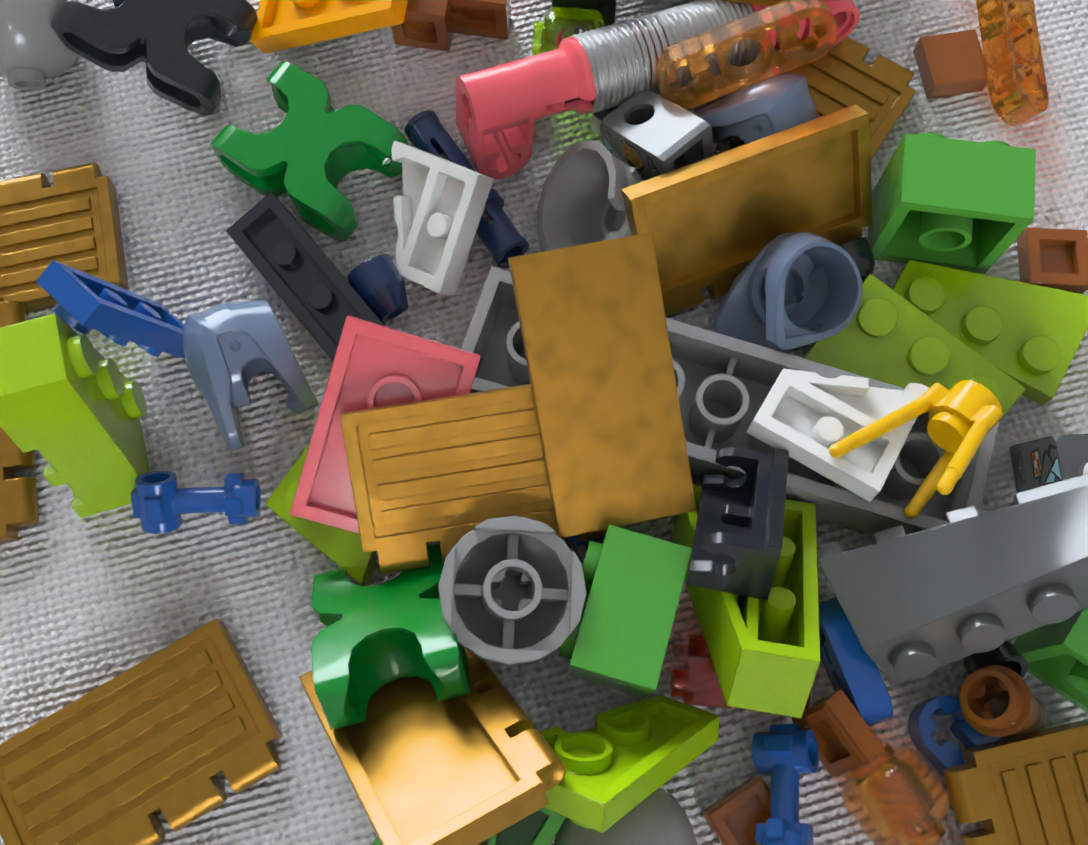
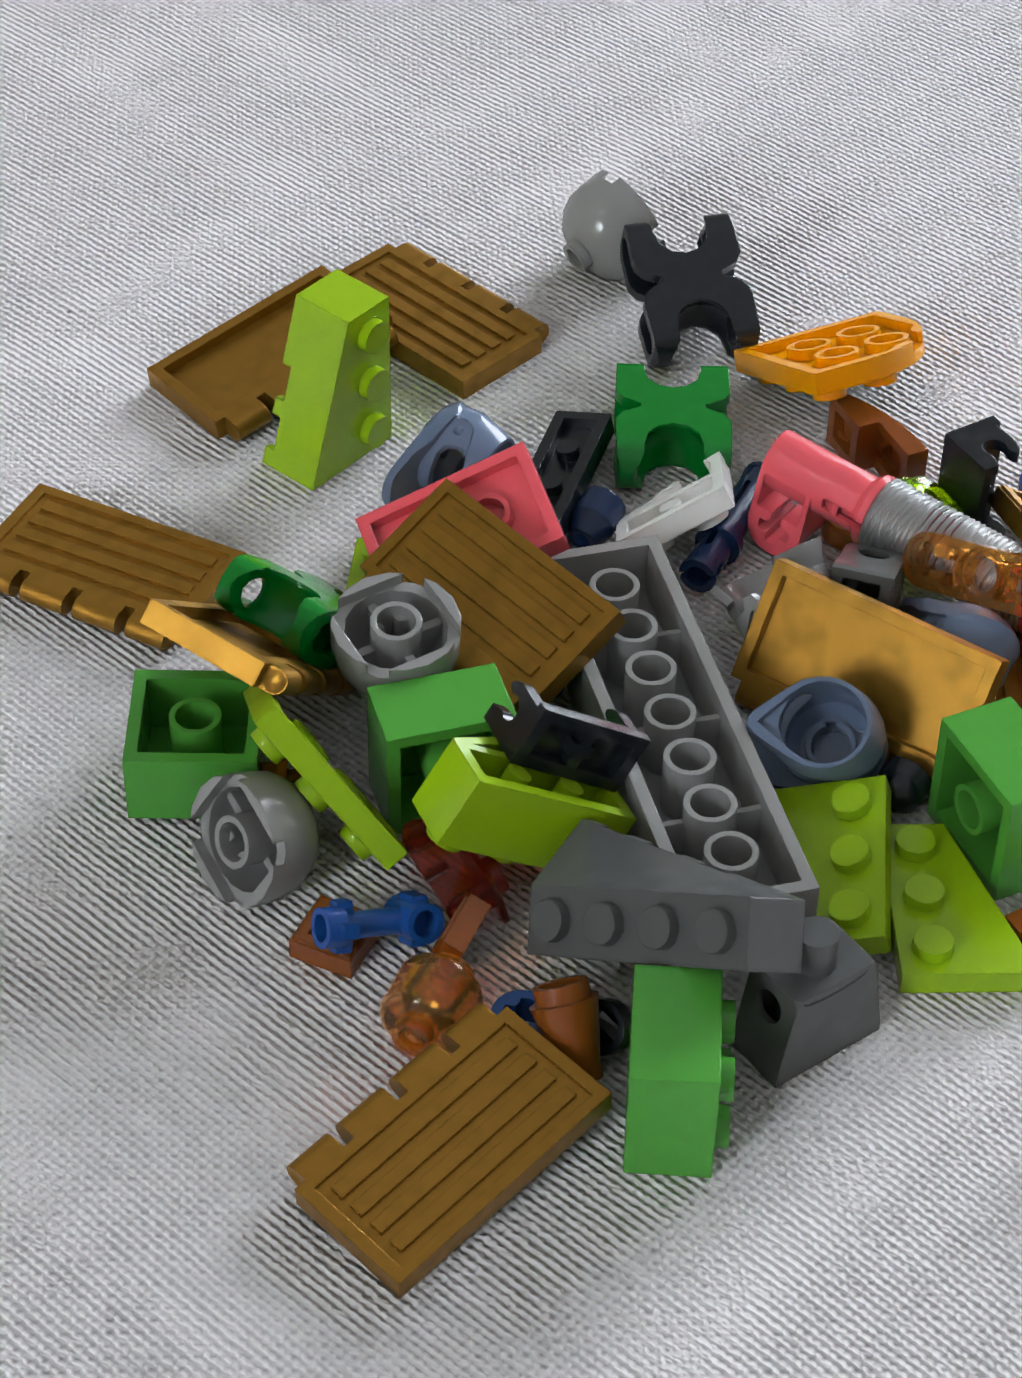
camera: 55 degrees right, 30 degrees down
(117, 313) = (426, 354): blue plate -> none
(161, 502) = (310, 483): blue bar -> none
(603, 383) = (603, 594): pearl gold tile -> none
(814, 412) = (706, 772): white wing -> none
(851, 666) = (503, 941): blue beam -> none
(956, 424) = (774, 825): yellow plant -> none

